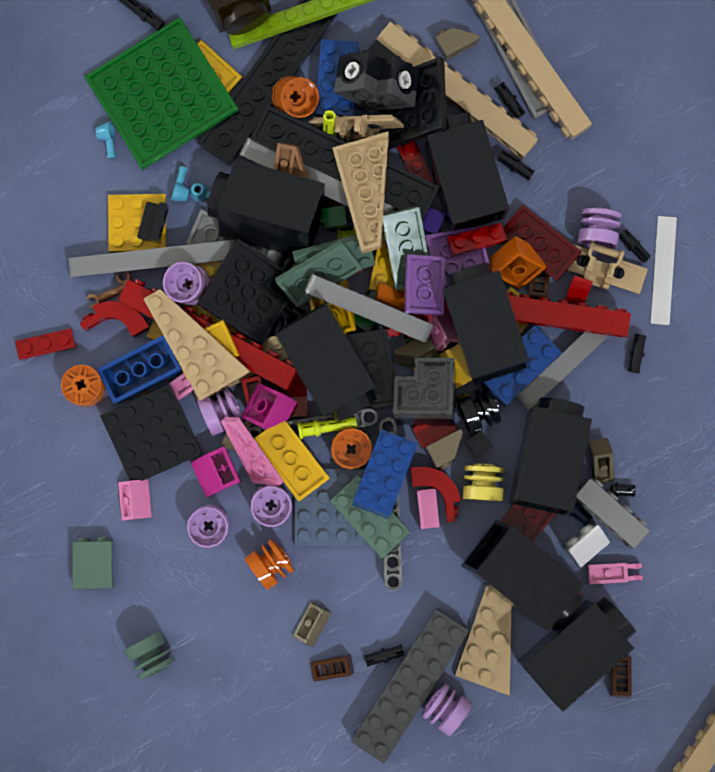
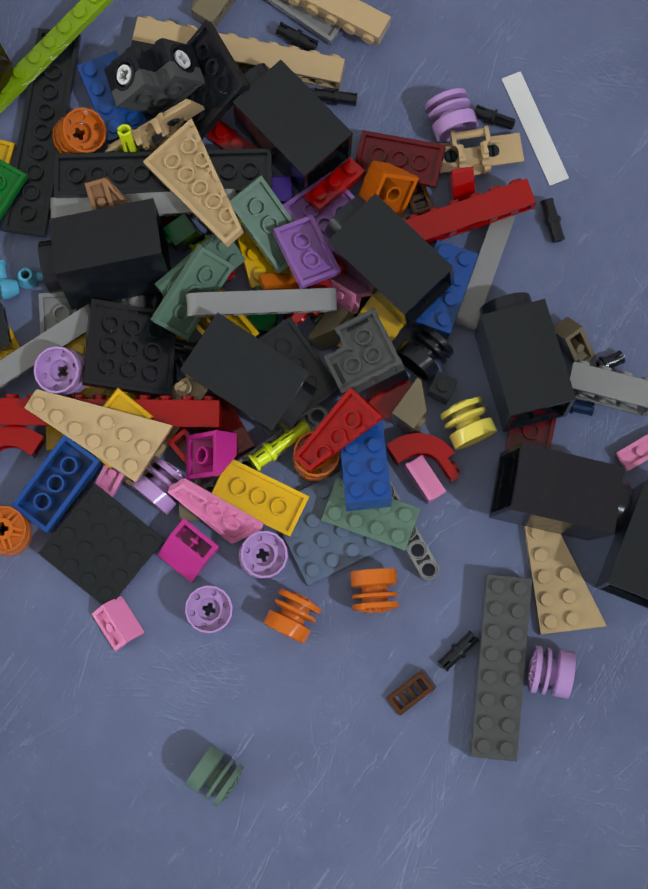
camera: 30 degrees left, 5 degrees down
(93, 563) = (107, 711): sand green panel -> none
(311, 624) = (367, 658): dark tan slope -> none
(342, 576) = (374, 590): none -> orange wheel
(380, 439) = (339, 428): none -> red wing
(586, 545) = (604, 432): white slope -> none

